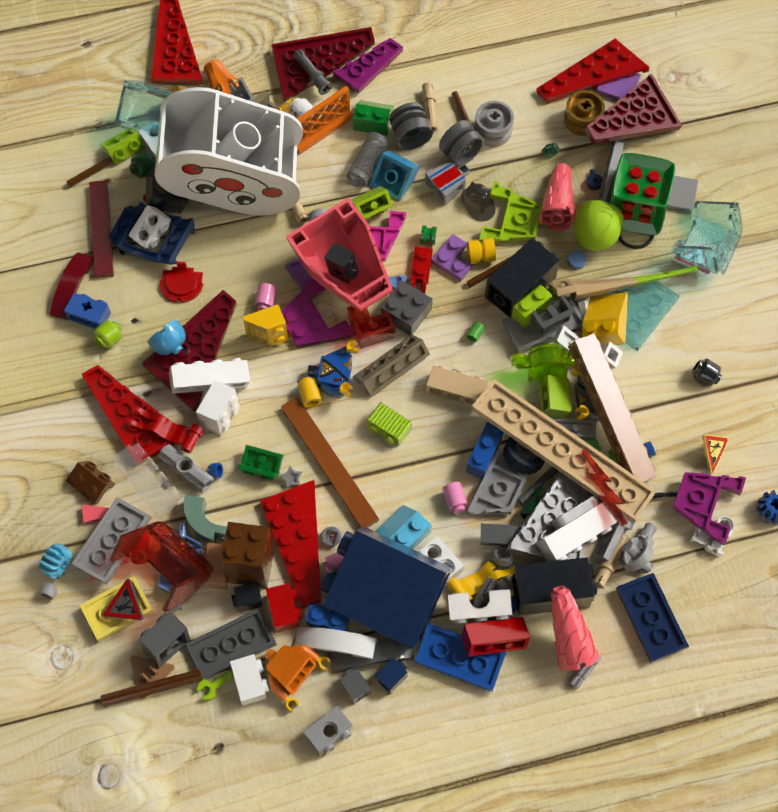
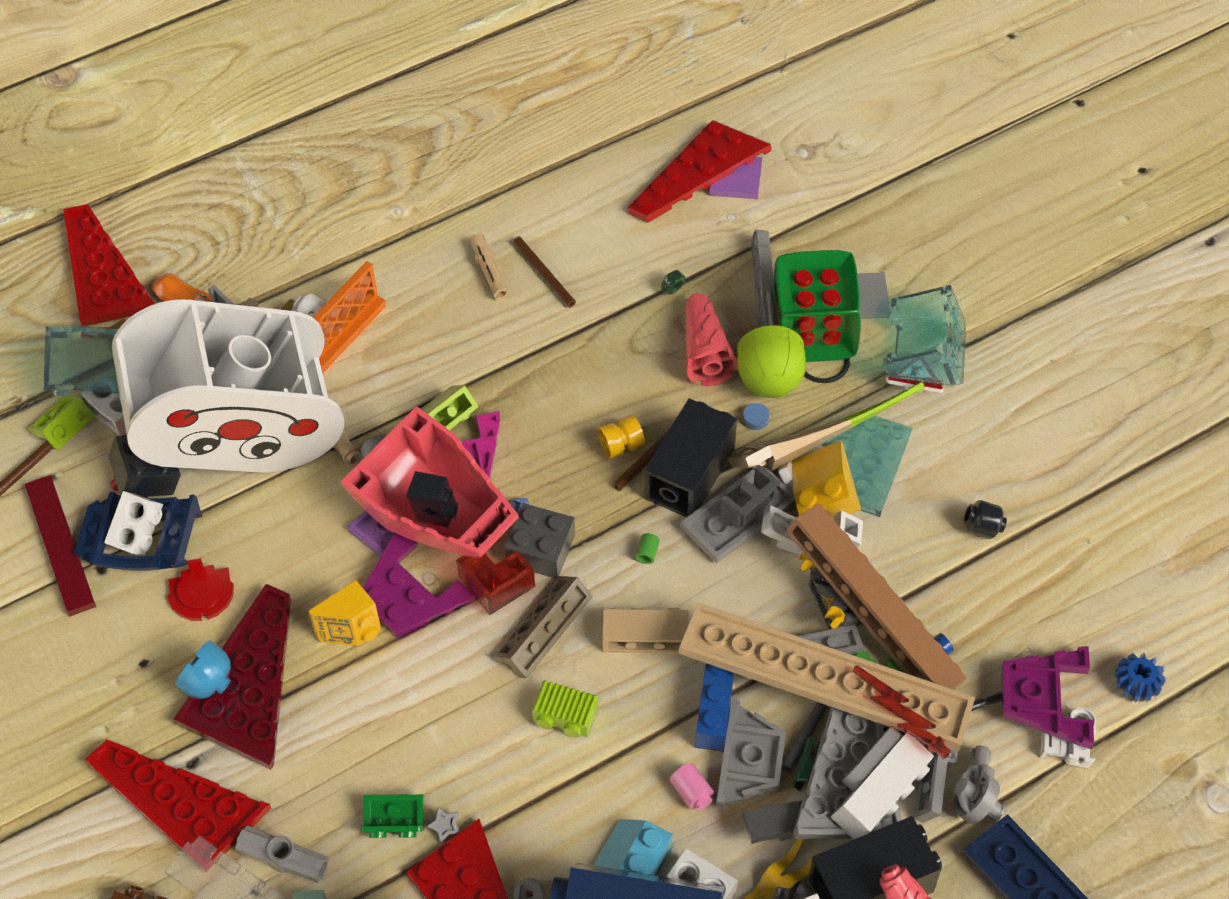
camera: 15 degrees left, 10 degrees down
(70, 283) = (32, 637): dark red slope -> none
(87, 310) = (71, 666): blue brick -> none
(107, 334) = (110, 691): lime head -> none
(141, 165) = (97, 441): dark green head -> none
(169, 430) = (243, 805): red flag -> none
(200, 375) = (280, 710): white brick -> none
(215, 470) = (327, 845): blue hinge -> none
(218, 408) = (307, 752): white brick -> none
(265, 296) = (330, 576): bright pink brick -> none
(309, 392) = (435, 695): yellow brick -> none
(316, 77) = (318, 262): dark grey pin -> none
(324, 52) = (304, 242): dark red wing -> none
(330, 463) = (495, 789): dark orange tile -> none
(335, 371) = (464, 654): blue torso -> none
(359, 173) = (416, 373): light grey piece -> none
(369, 65) = (386, 232): magenta wing -> none
(372, 117) = (413, 299): green slope -> none
(394, 174) = (467, 364): dark azure slope -> none
(410, 126) = (471, 295): dark grey wheel -> none
(421, 267) = (543, 479): red hinge -> none
(428, 234) = (540, 434): green wheel -> none
(447, 181) = (543, 356): light grey torso -> none
(448, 258) = (579, 462): medium lavender plate -> none
(461, 143) = (549, 300): dark grey wheel -> none
(478, 202) = (595, 373): clear smoke piece -> none
(494, 122) = (585, 265): light grey wheel -> none
(503, 556) = (789, 851): light grey tile -> none
(520, 218) = (661, 381): lime wing -> none
(521, 458) = (769, 704): black wheel -> none
(537, 301) = (721, 481): lime brick -> none
(544, 361) = (759, 563): clear neon green piece -> none
(555, 396) = (789, 606): lime brick -> none
(581, 110) = (703, 223): pearl gold wheel -> none
(594, 180) = (745, 307): dark blue piece -> none
(607, 567) = (941, 826): tan pin -> none
(637, 114) = (772, 208): dark red wing -> none
(713, 448) = (1030, 616): piece -> none

